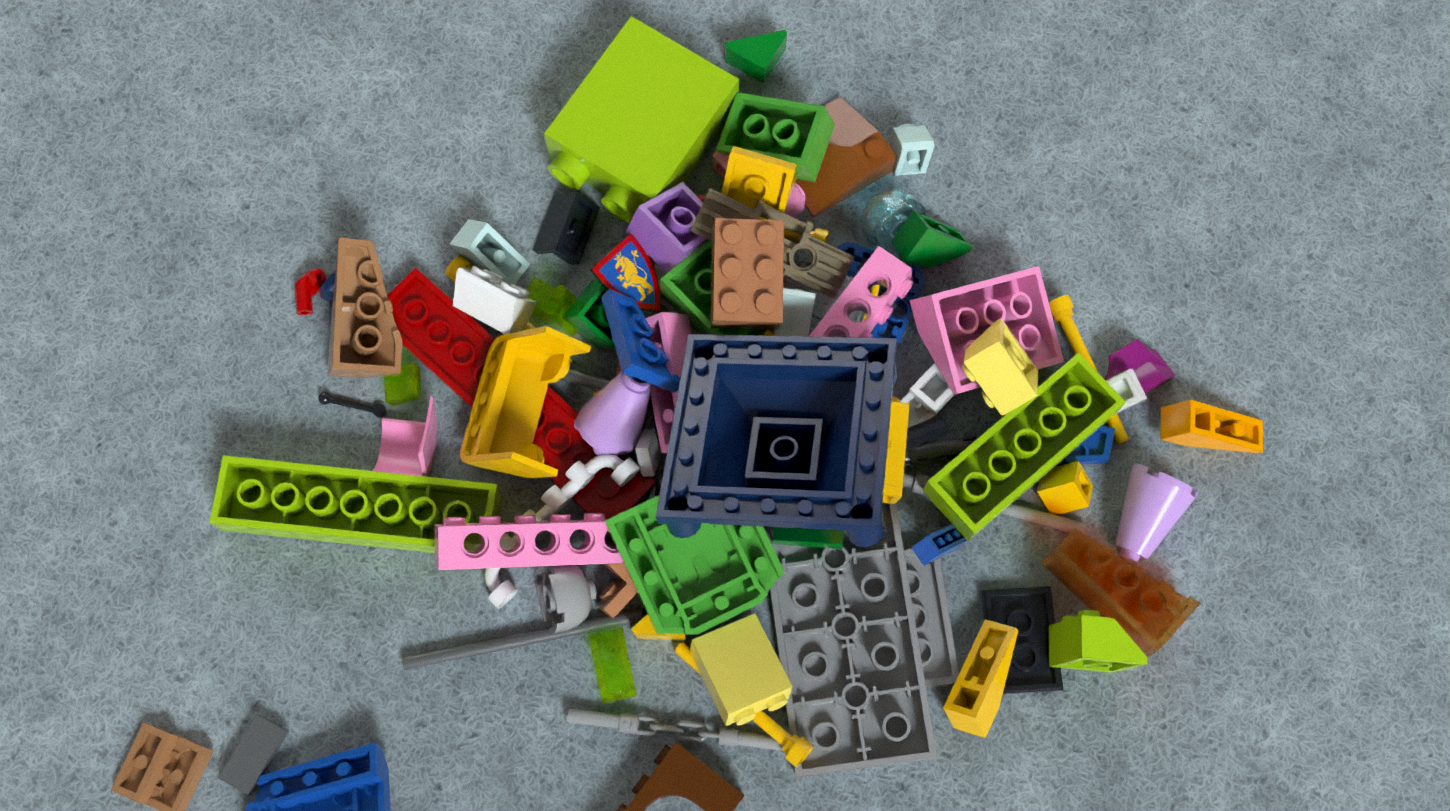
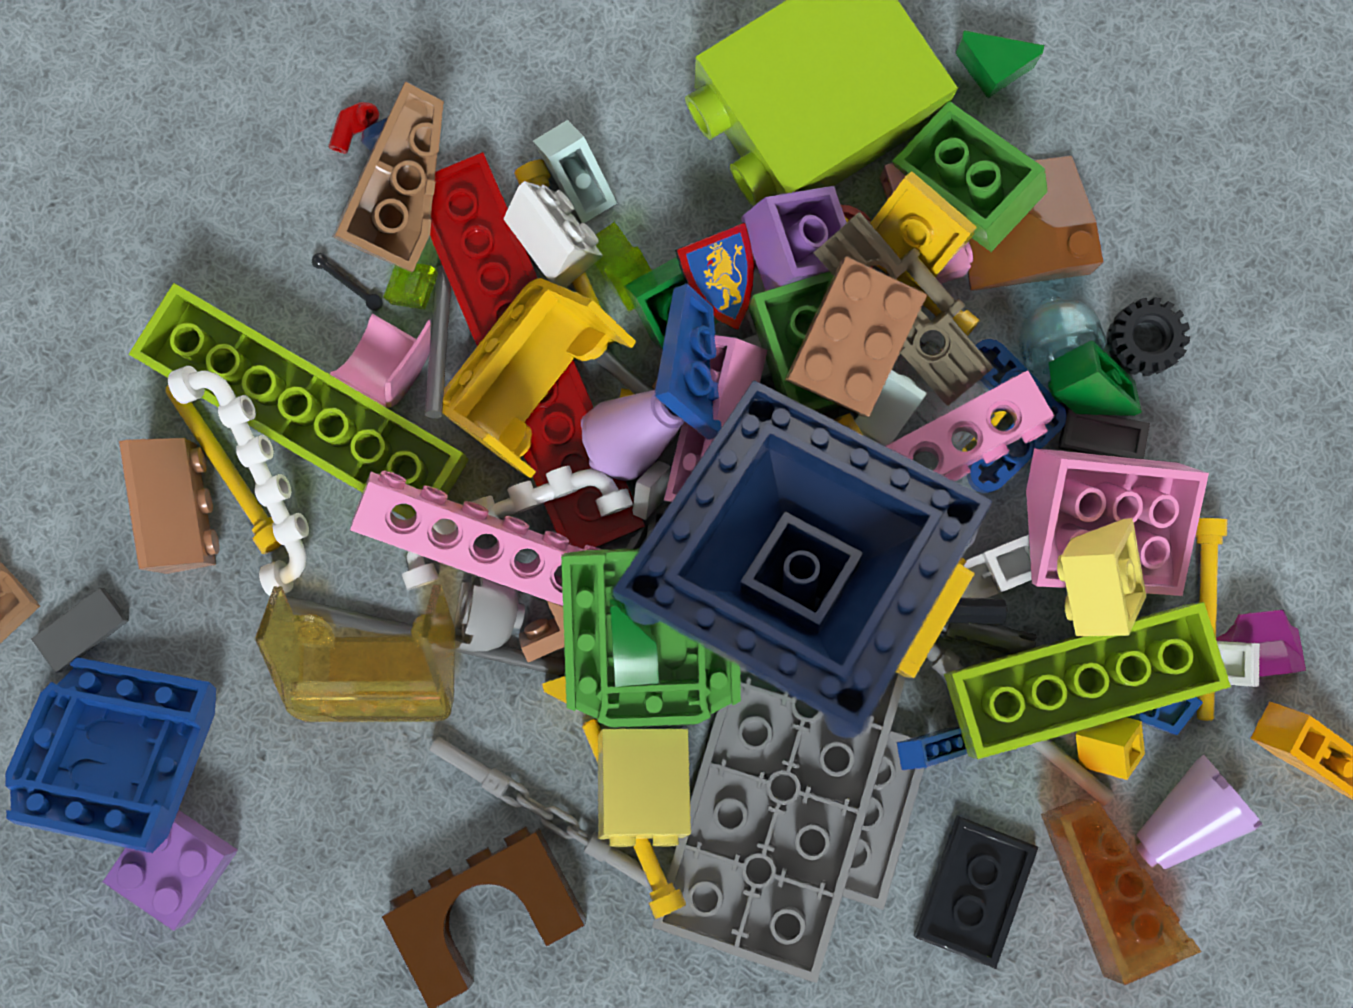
camera: 25 degrees right, 10 degrees up
(287, 623) = (169, 504): none -> nougat slope
(337, 552) = (252, 451): none -> white bar
(371, 613) = (263, 525): none -> yellow piece
(443, 418) = (438, 346): none -> dark grey bar
(494, 688) = (360, 676): none -> clear yellow windscreen
(567, 227) = (677, 178): black panel -> none
(612, 665) = (506, 710): clear neon green slope -> none
(688, 568) = (633, 649): none -> green slope
(912, 149) = (1127, 259): light aqua slope -> none
(955, 274) = (1104, 435): none -> dark grey tile
(957, 178) = (1167, 322): none -> black tyre
(982, 680) = (909, 918): yellow slope -> none
(1092, 644) = (1052, 939): lime slope -> none

